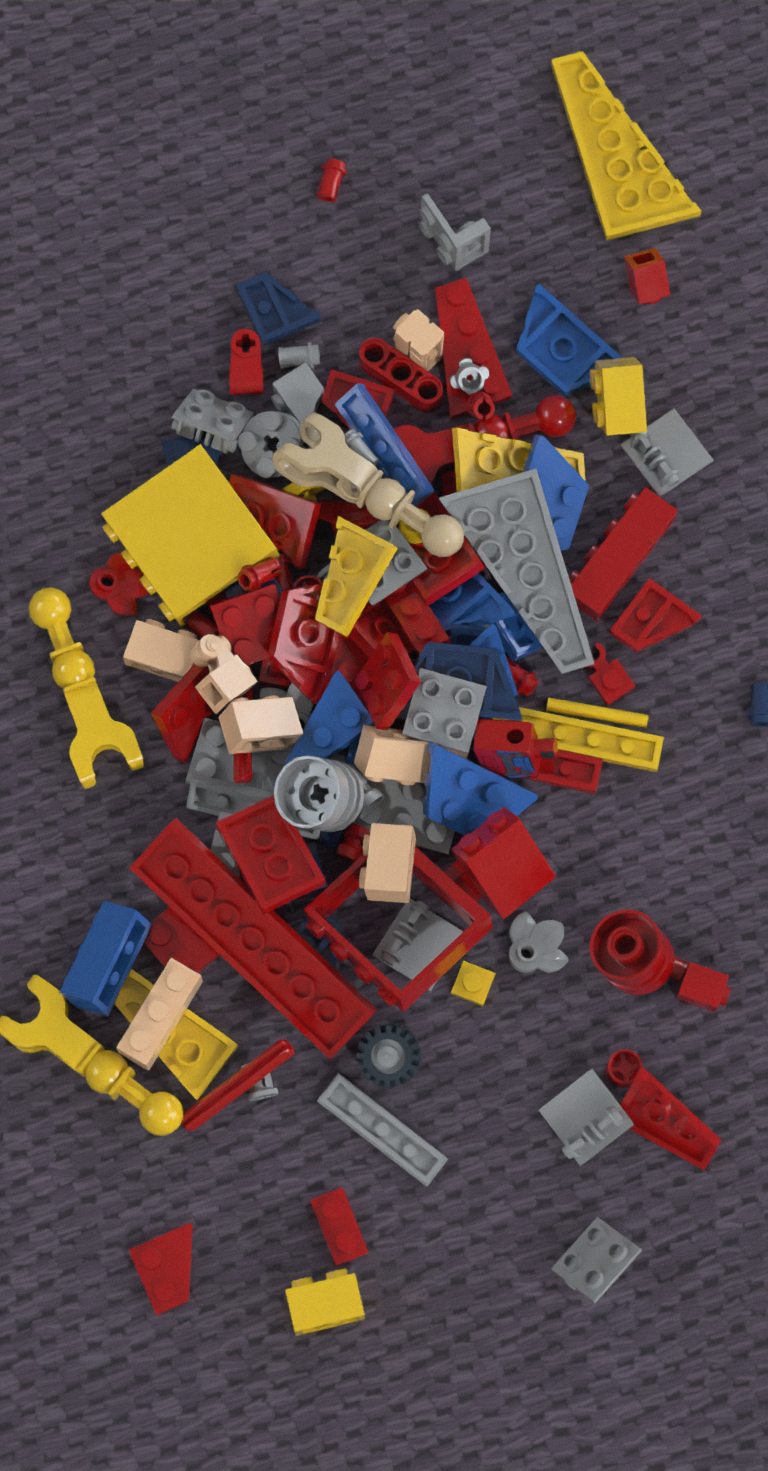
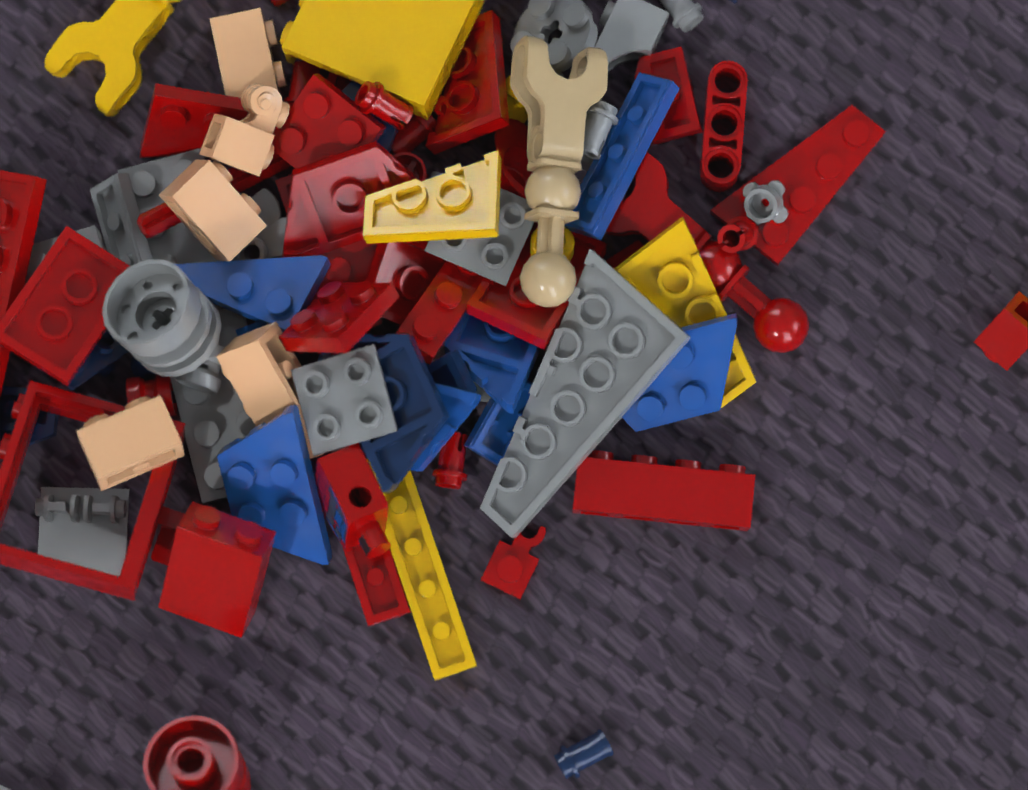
camera: 65 degrees right, 5 degrees up
(419, 339) = (769, 120): light nougat brick -> none
(454, 249) = (915, 105): light grey bracket -> none
(473, 983) = (72, 616): yellow plate -> none
(540, 940) = (163, 661): light grey plate -> none
(560, 344) = (871, 290): blue wing -> none
(597, 712) = (465, 574): yellow bar -> none
(619, 396) = (842, 383): yellow brick -> none
(652, 618) = (611, 572): red wing -> none
(667, 452) = (819, 476): light grey hinge -> none

